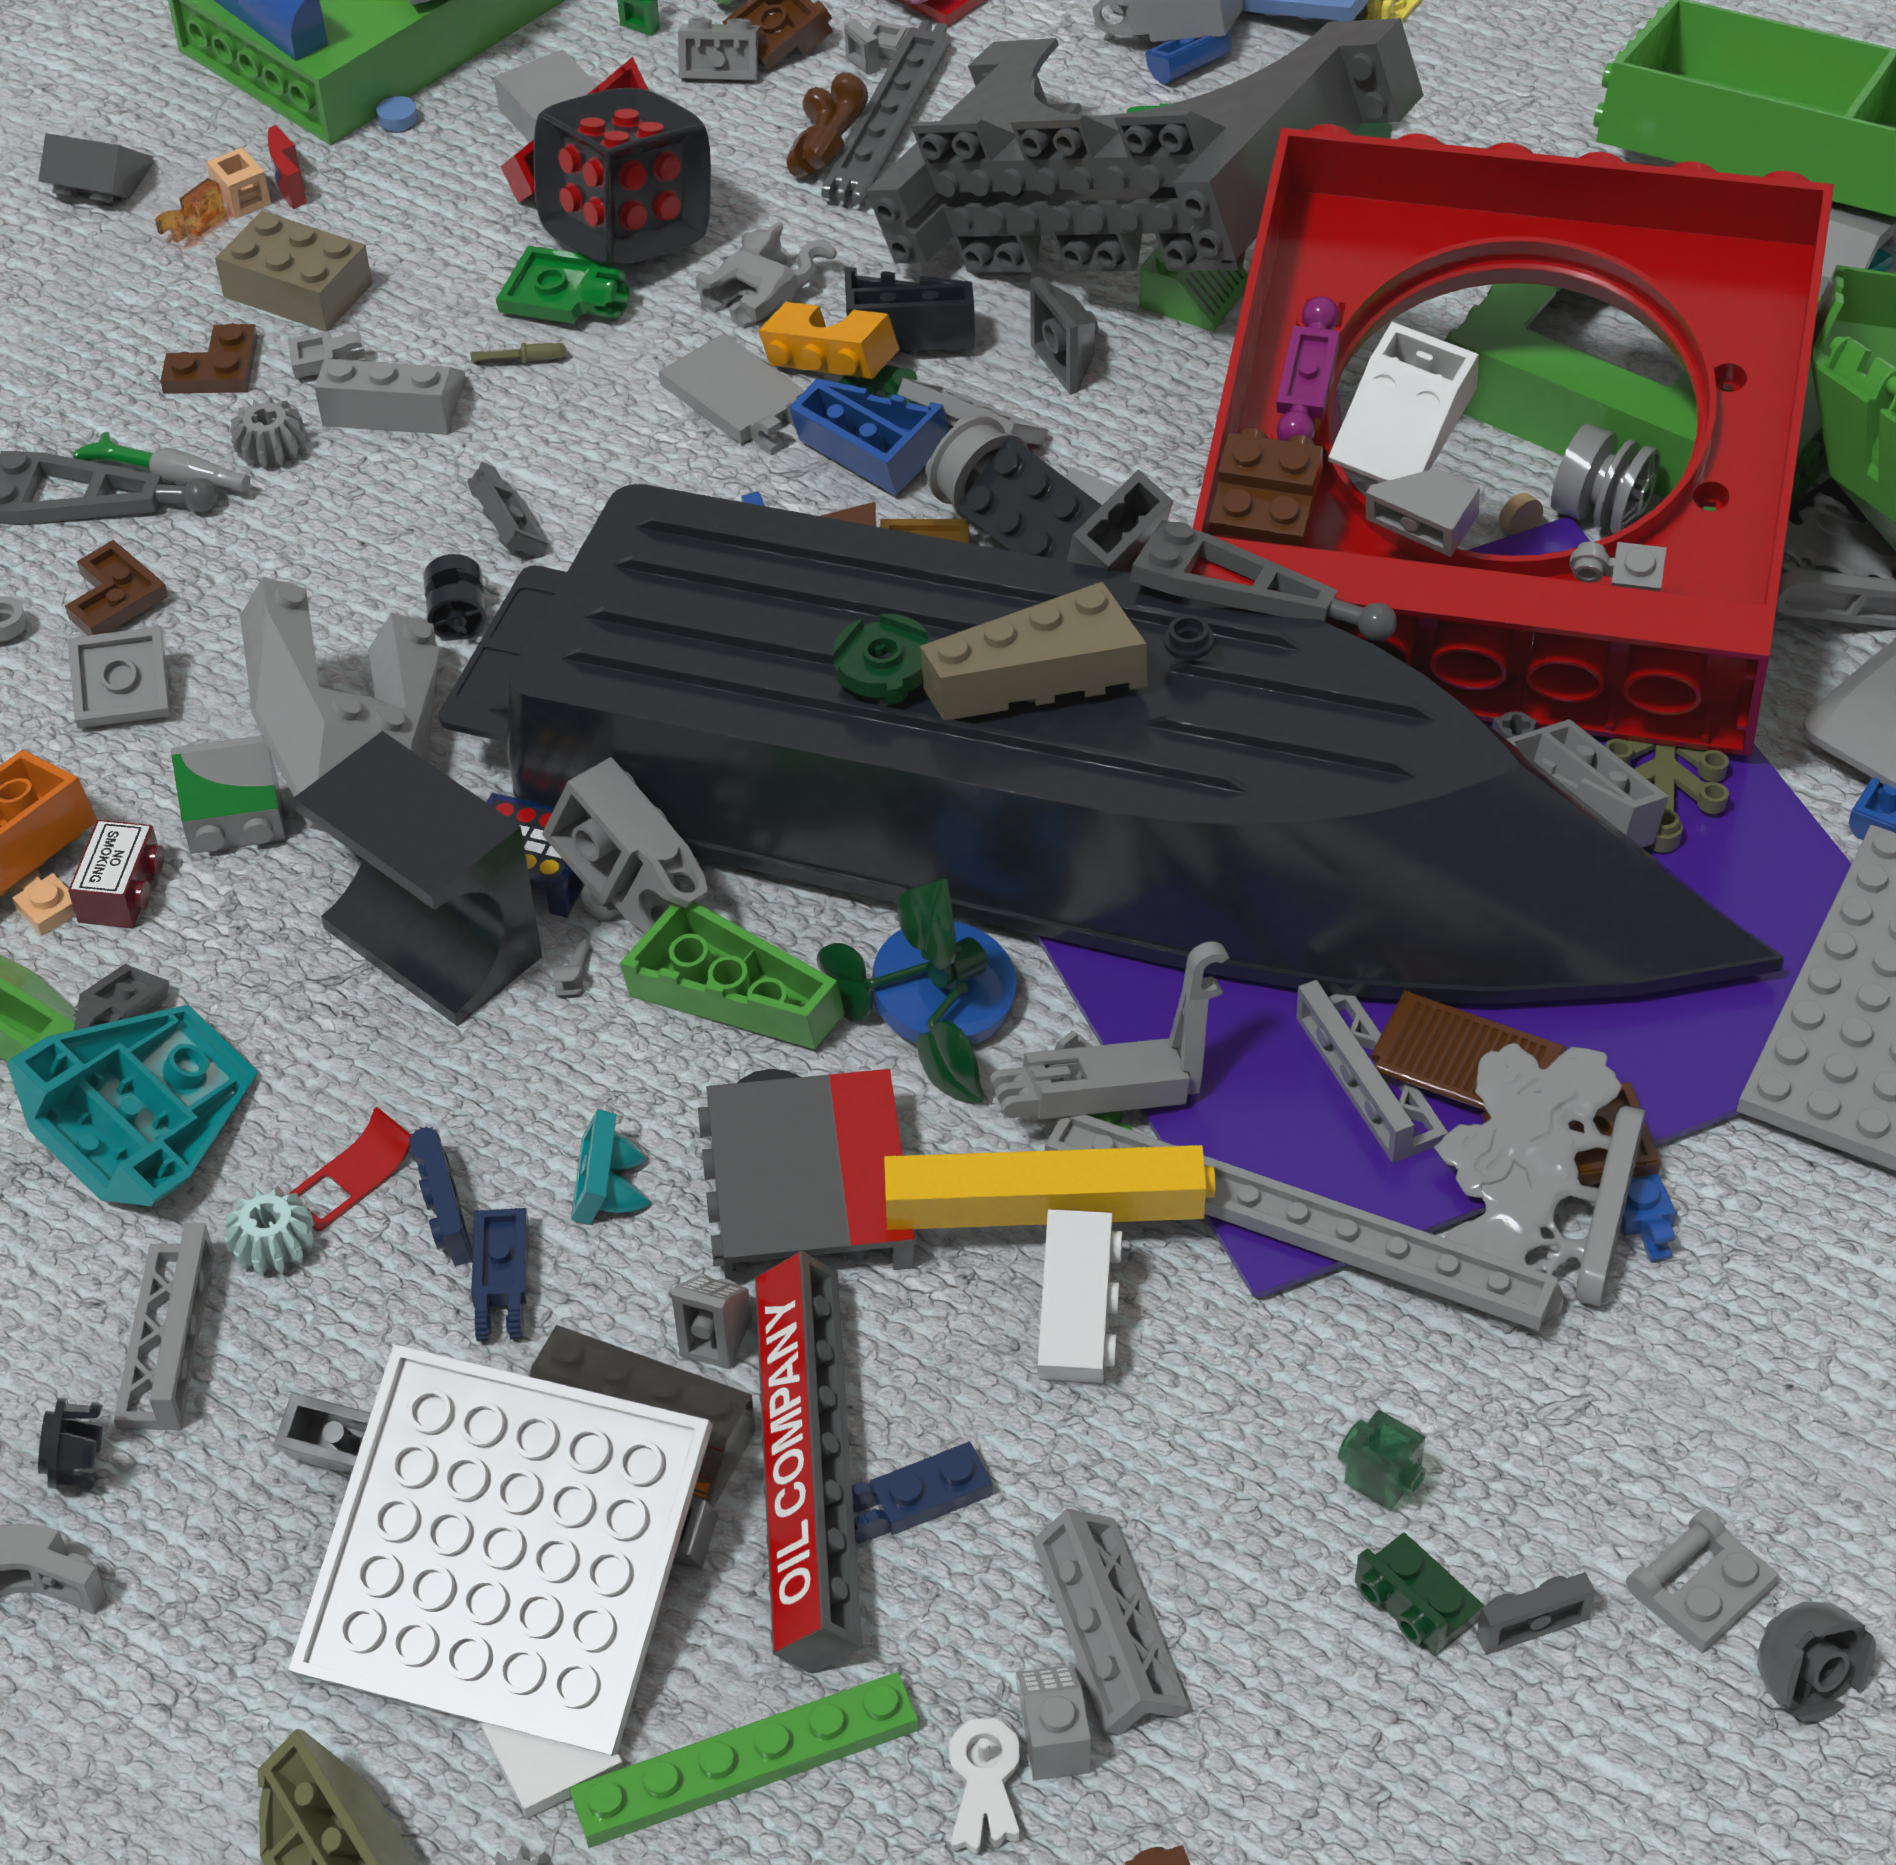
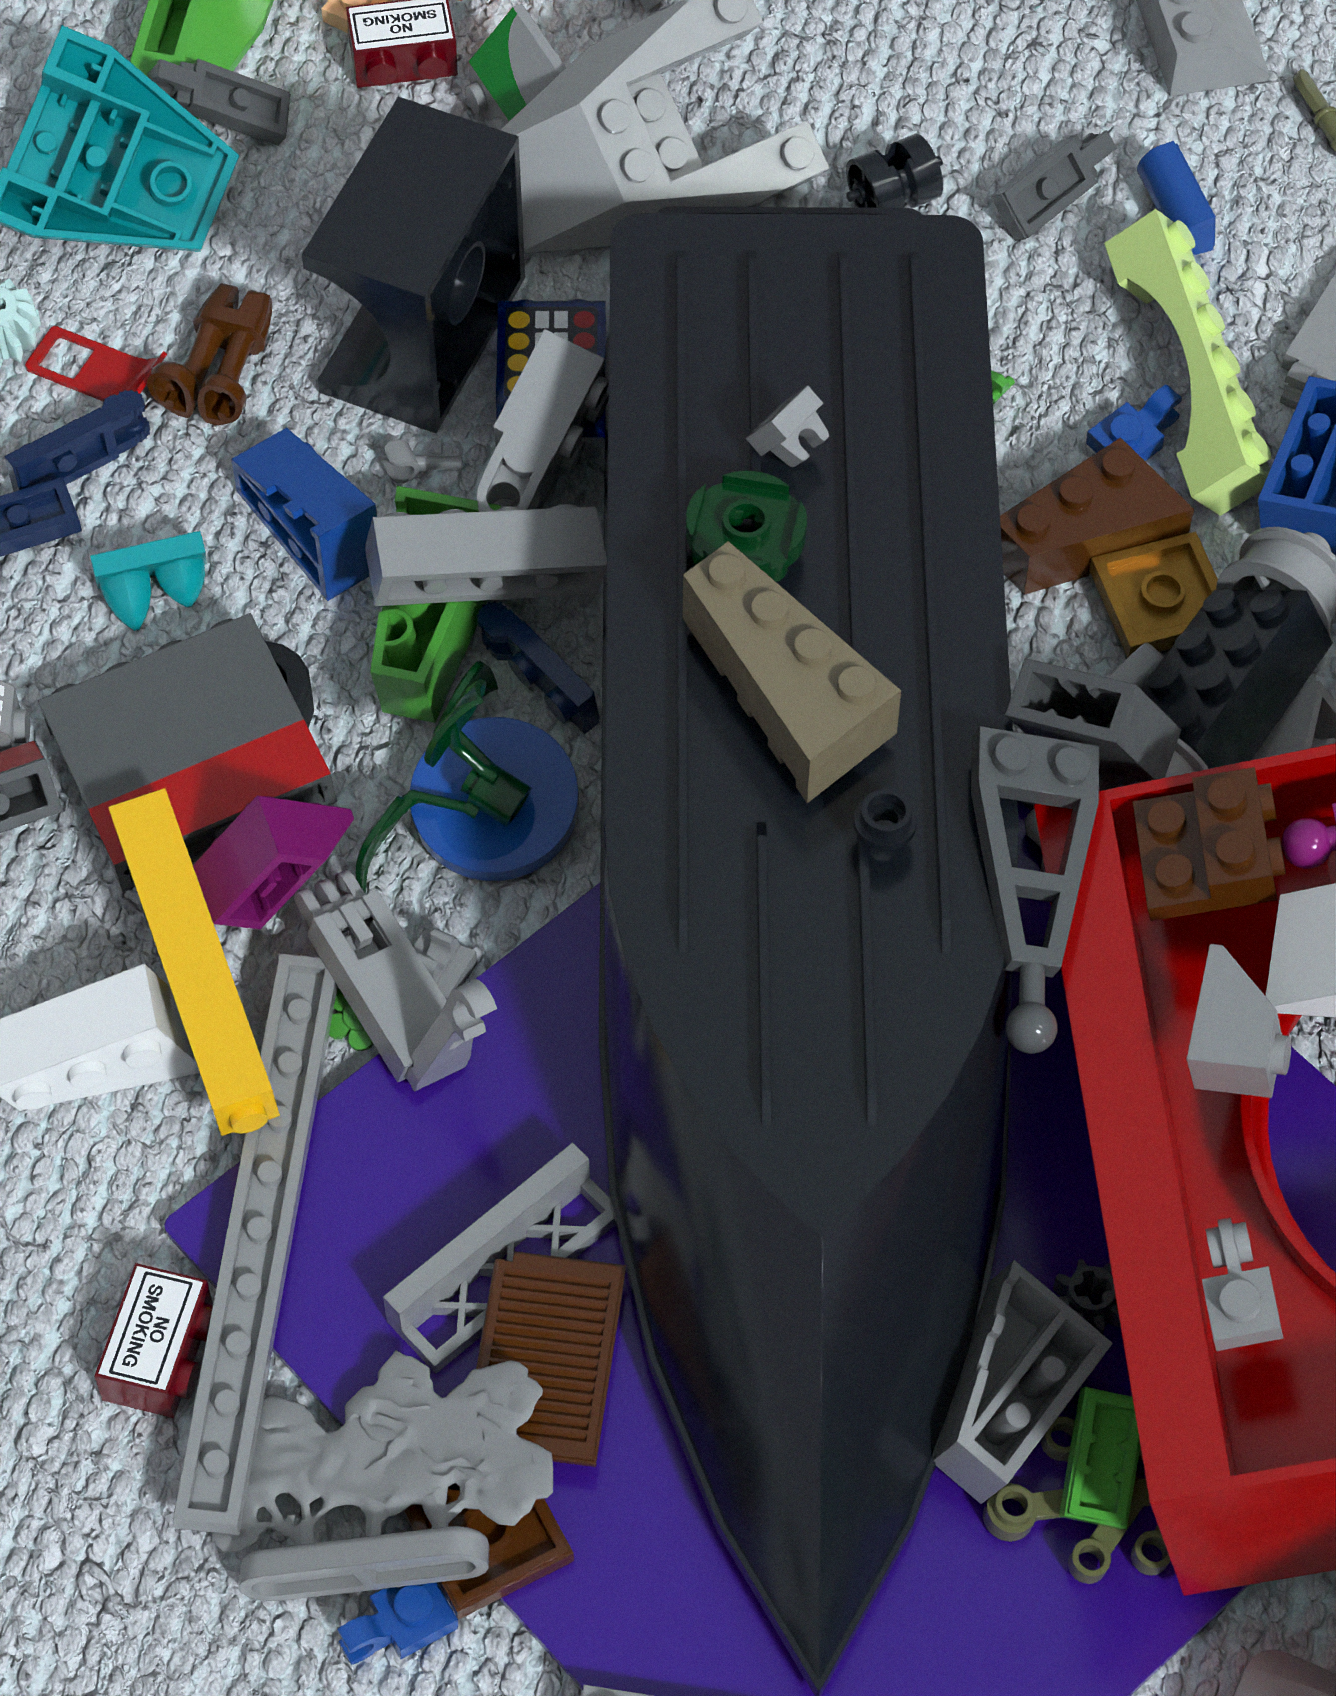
camera: 70 degrees right, 10 degrees up
(369, 1053) = (217, 326): none -> reddish brown piece
(563, 445) = (1178, 193): none -> blue brick
(601, 1038) = (307, 509): none -> blue wedge
(739, 902) = (485, 555): none -> light grey brick
(797, 610) = (786, 423): none -> light grey tile
(826, 479) = (1223, 451): none -> yellowish green arch
(840, 922) = (537, 663): none -> dark blue hinge
(973, 1105) = (267, 858): none -> magenta slope
(1365, 1314) = (155, 1341): none -> brick
(1650, 757) = (1101, 1460): none -> bright green plate

